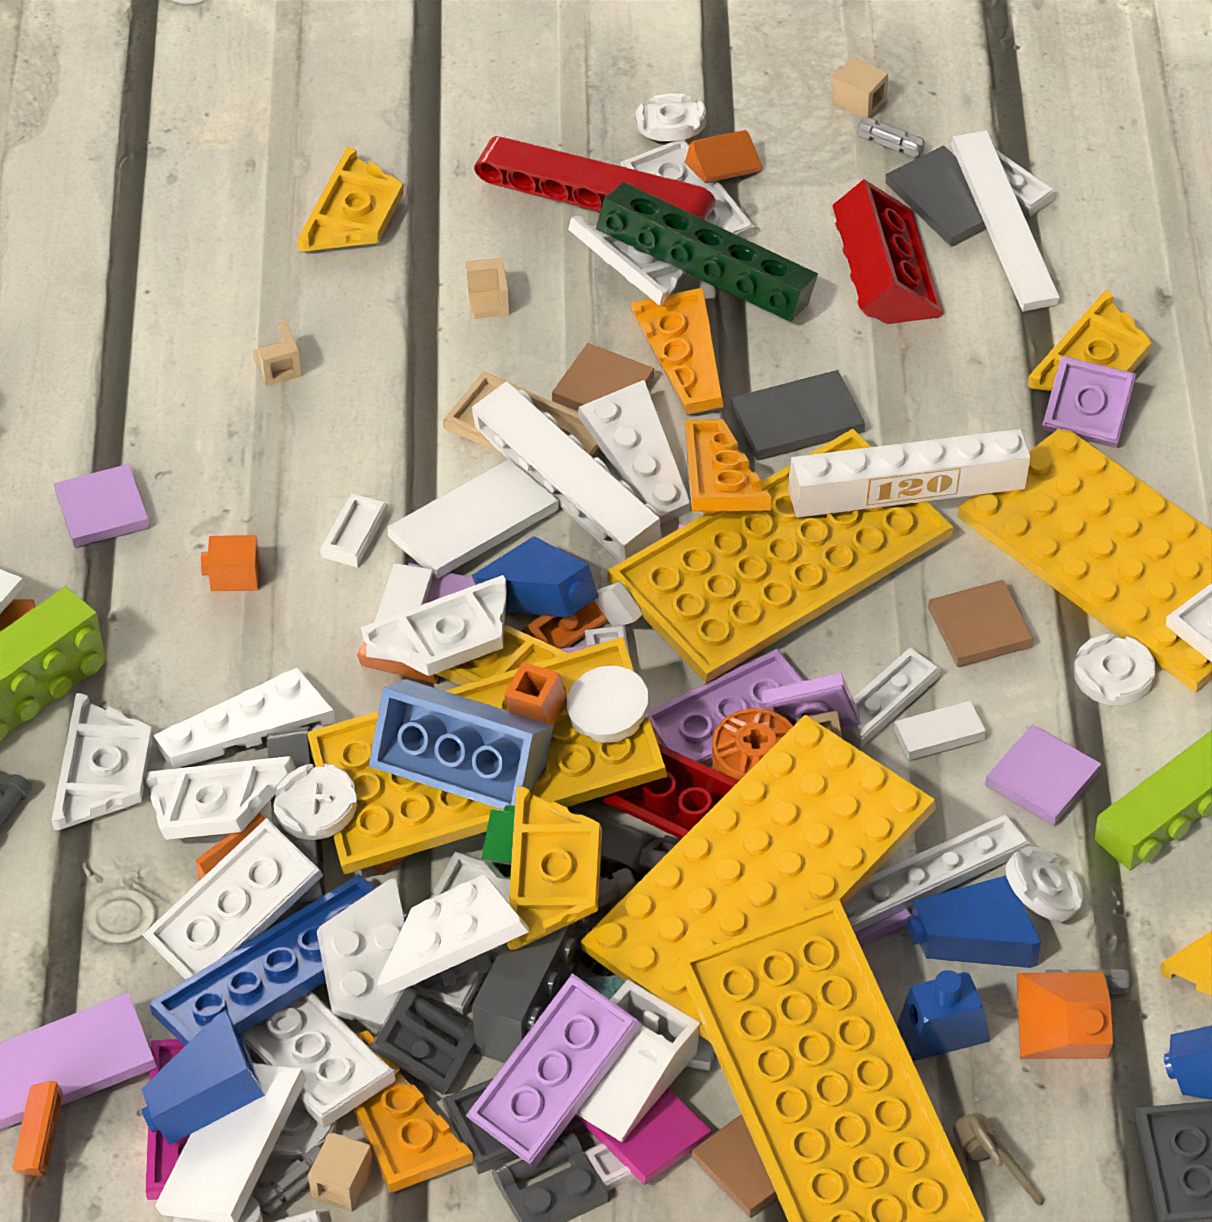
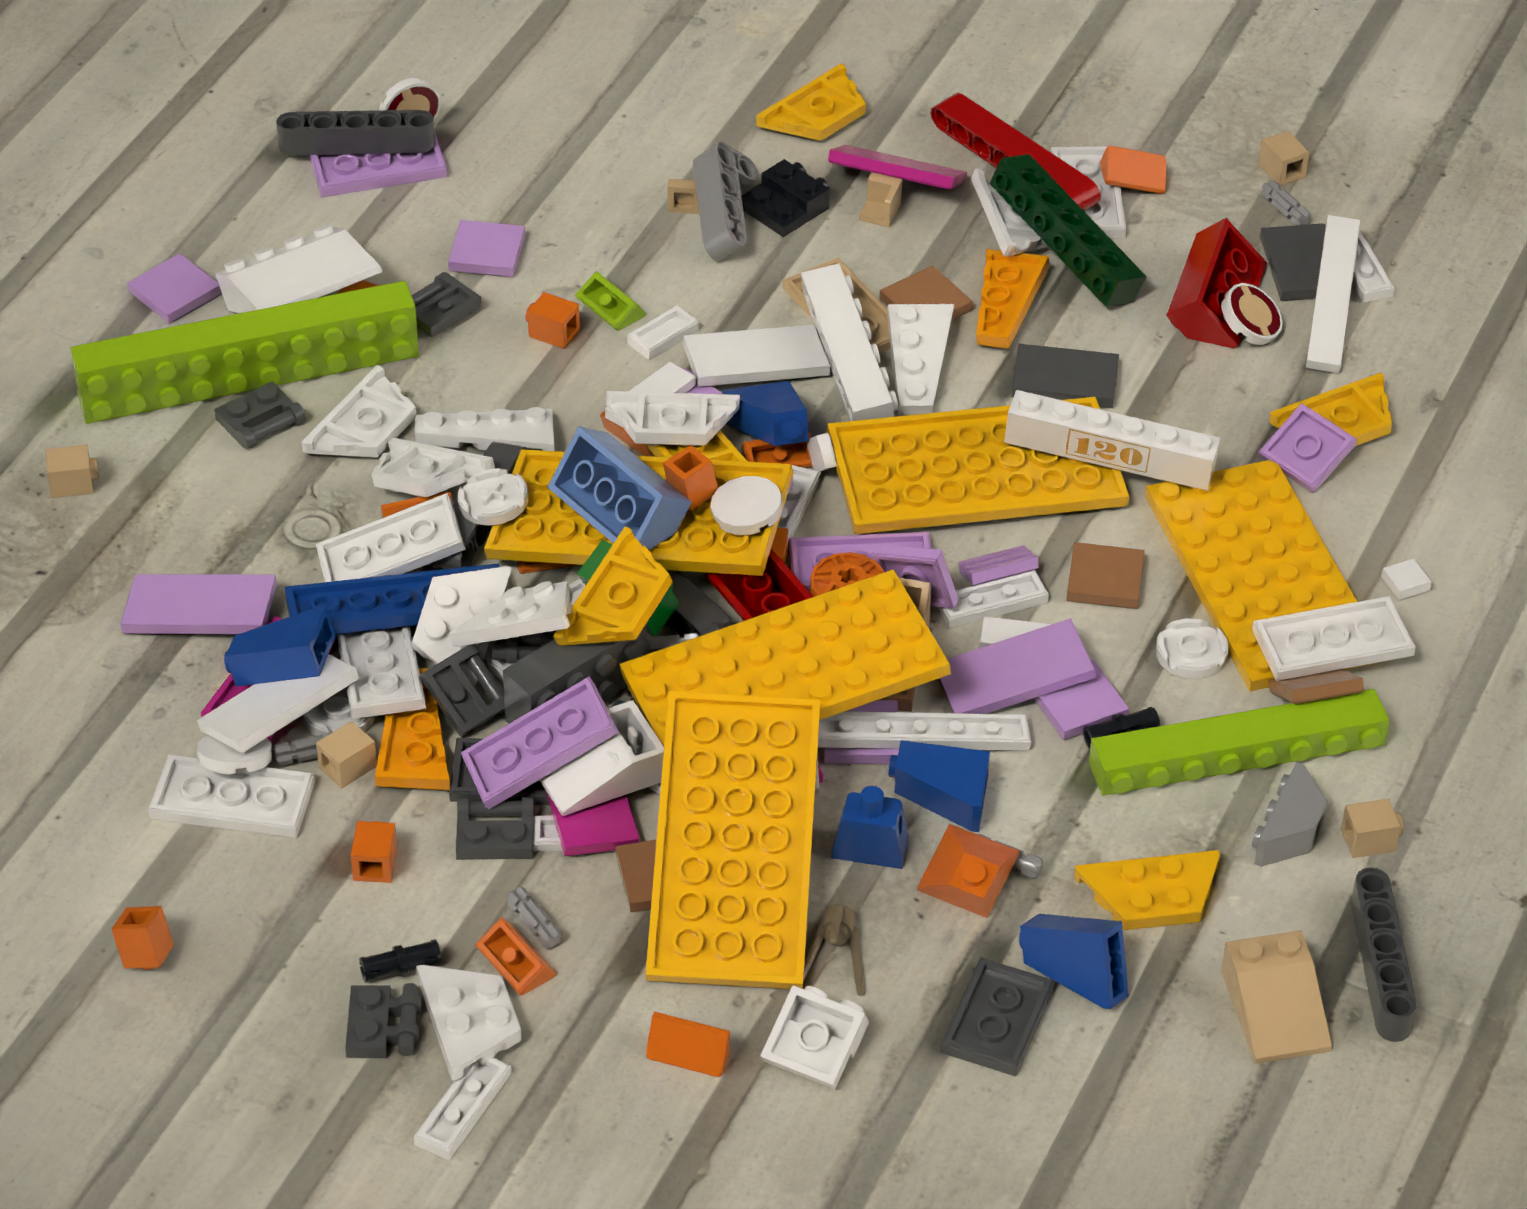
camera: 25 degrees right, 5 degrees down
(38, 1129) = (153, 640): orange slope -> none
(106, 590) = (443, 304): none -> dark grey plate
(275, 517) = (609, 302): none -> lime slope
(312, 329) = (718, 181): none -> light grey beam
(385, 323) = (786, 198): none -> black plate
(484, 244) = (897, 166): none -> dark pink tile
(671, 117) = (1114, 129): white tile -> none
(718, 471) = (963, 386): light orange wing -> none
(872, 656) = (998, 565): none -> lavender tile
(942, 274) = (1252, 314): none -> tile
(975, 764) = (1017, 669): none -> lavender tile
(1044, 884) = (1017, 771): white tile -> none
(1105, 788) = (1122, 723): none -> black pin

